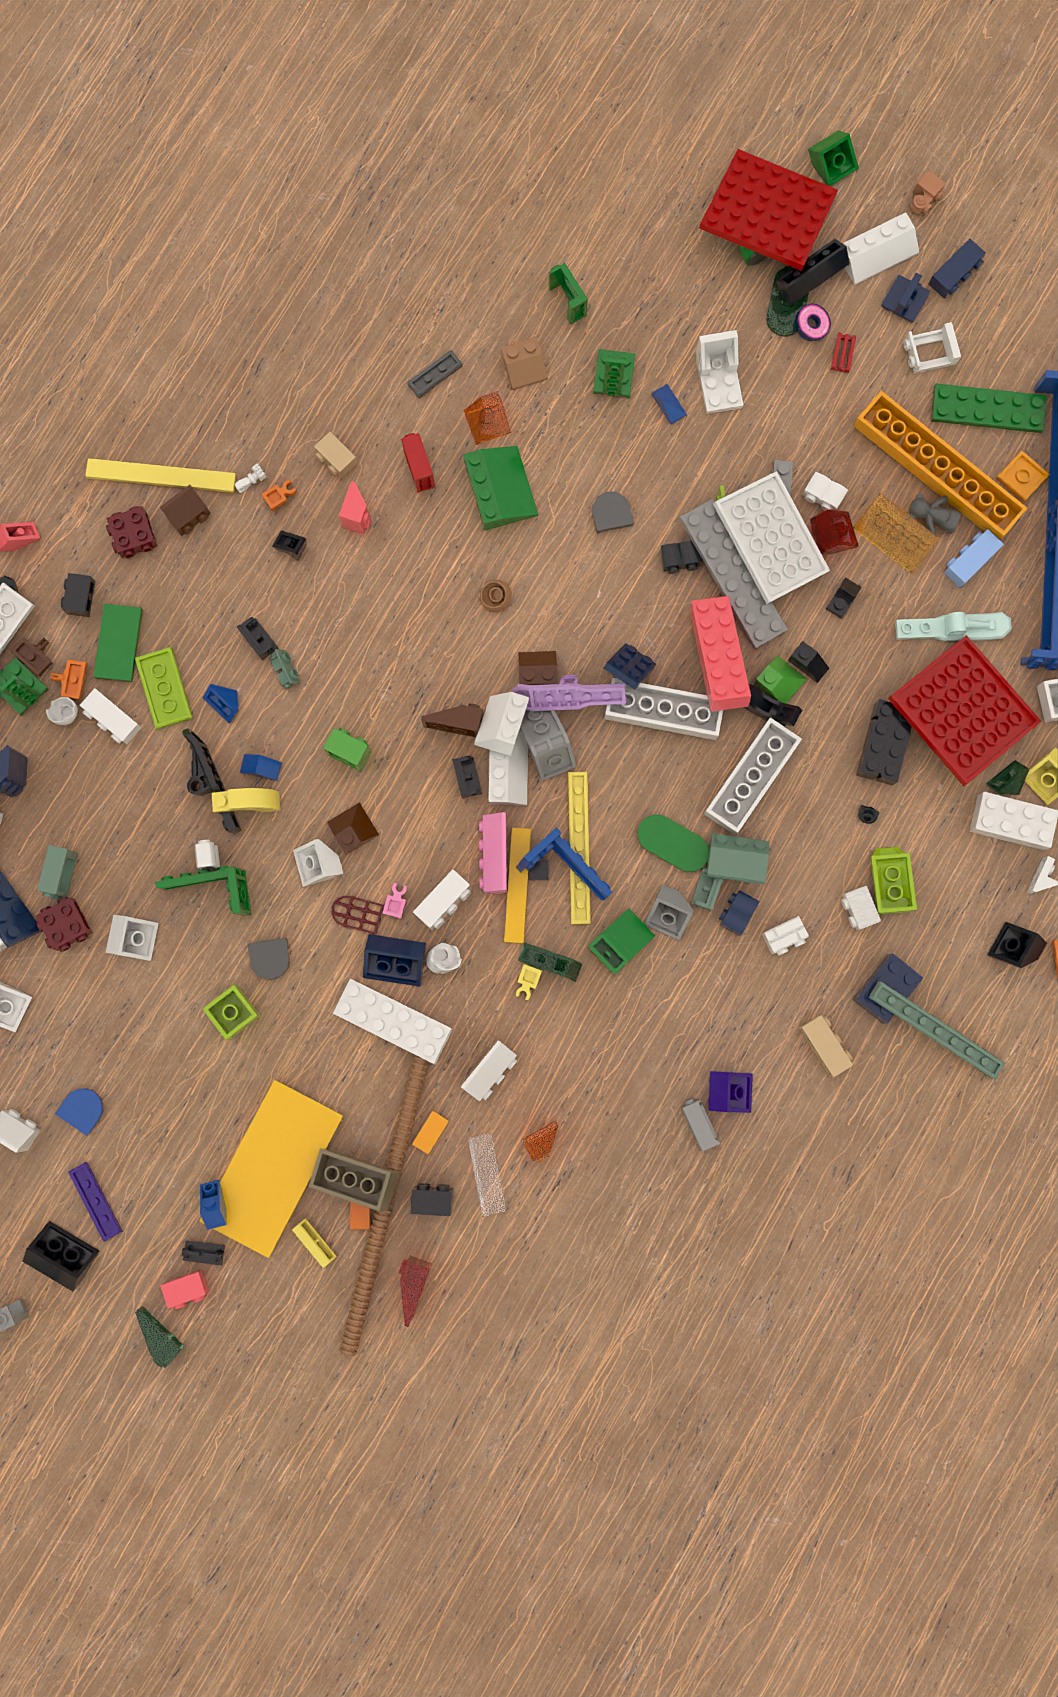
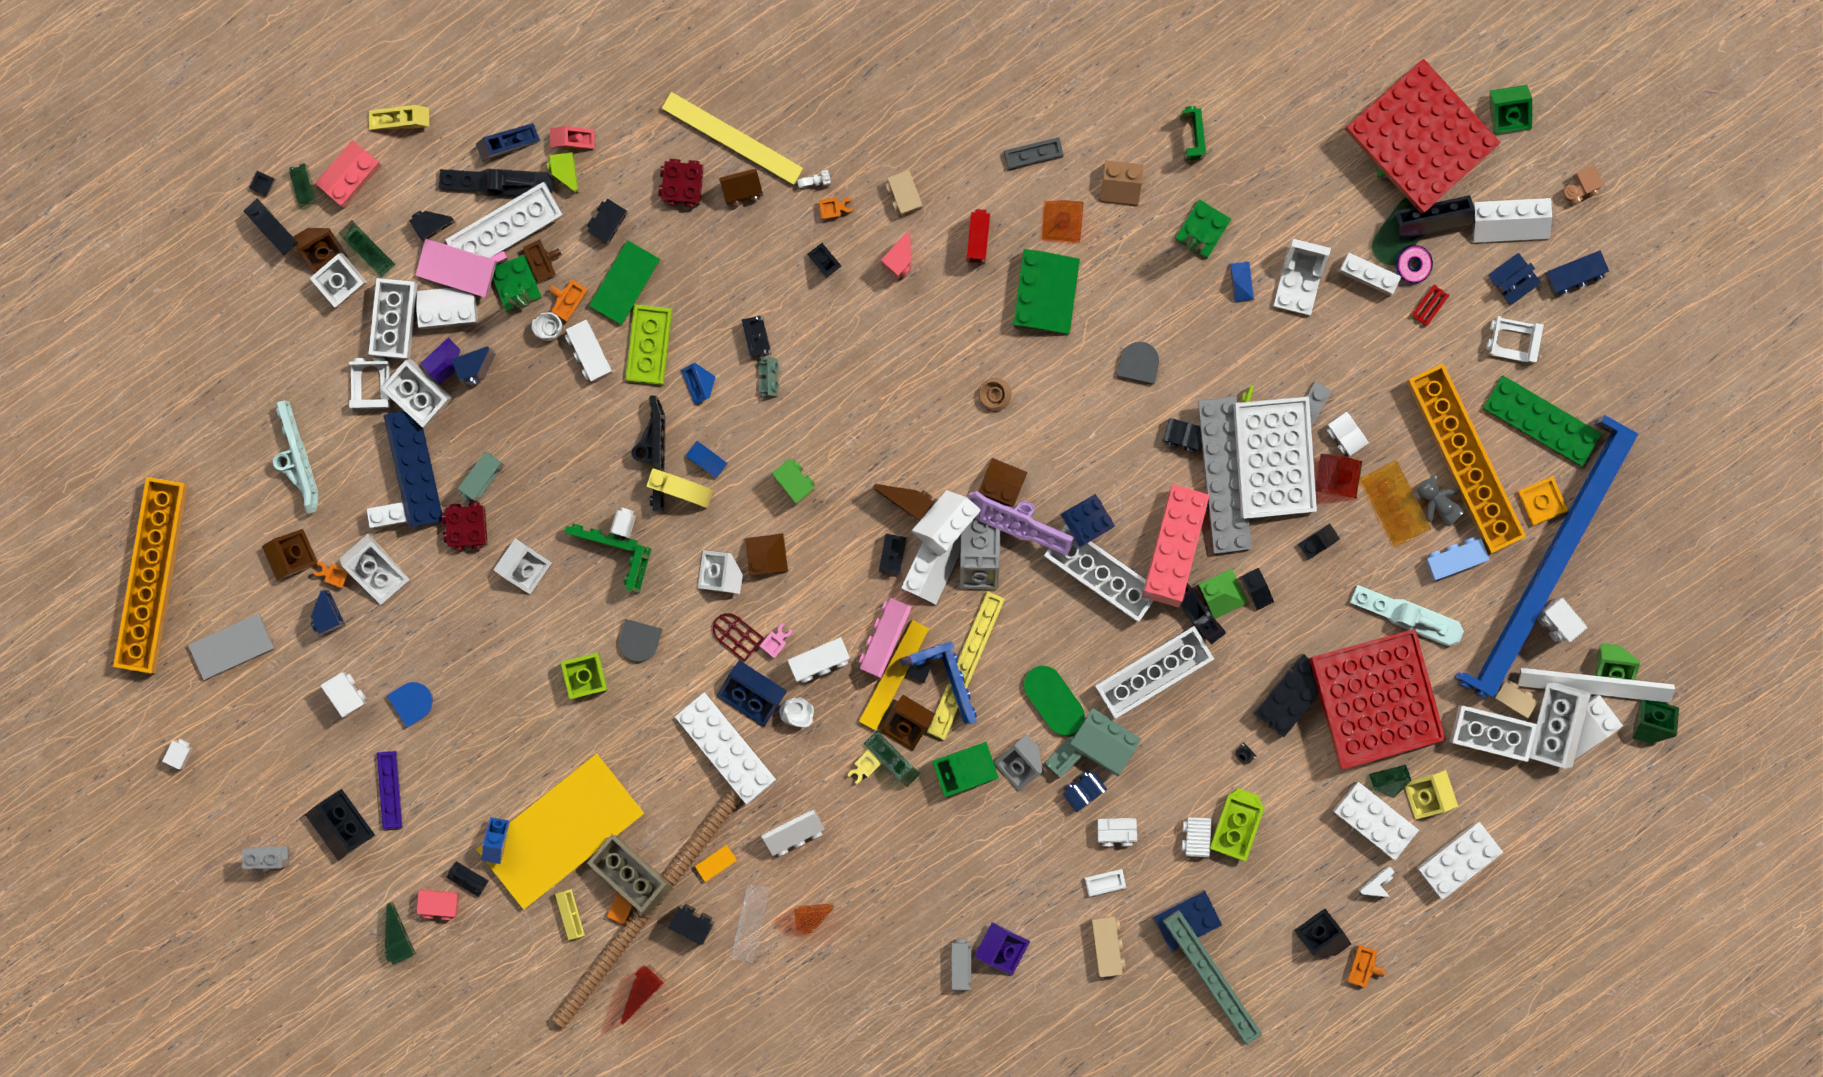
camera: 25 degrees right, 5 degrees up
(19, 566) = (564, 170): none -> lime slope
(549, 922) = (907, 722): none -> reddish brown slope
(778, 347) = (1369, 274): none -> white brick
(796, 988) = (1105, 882): none -> white tile

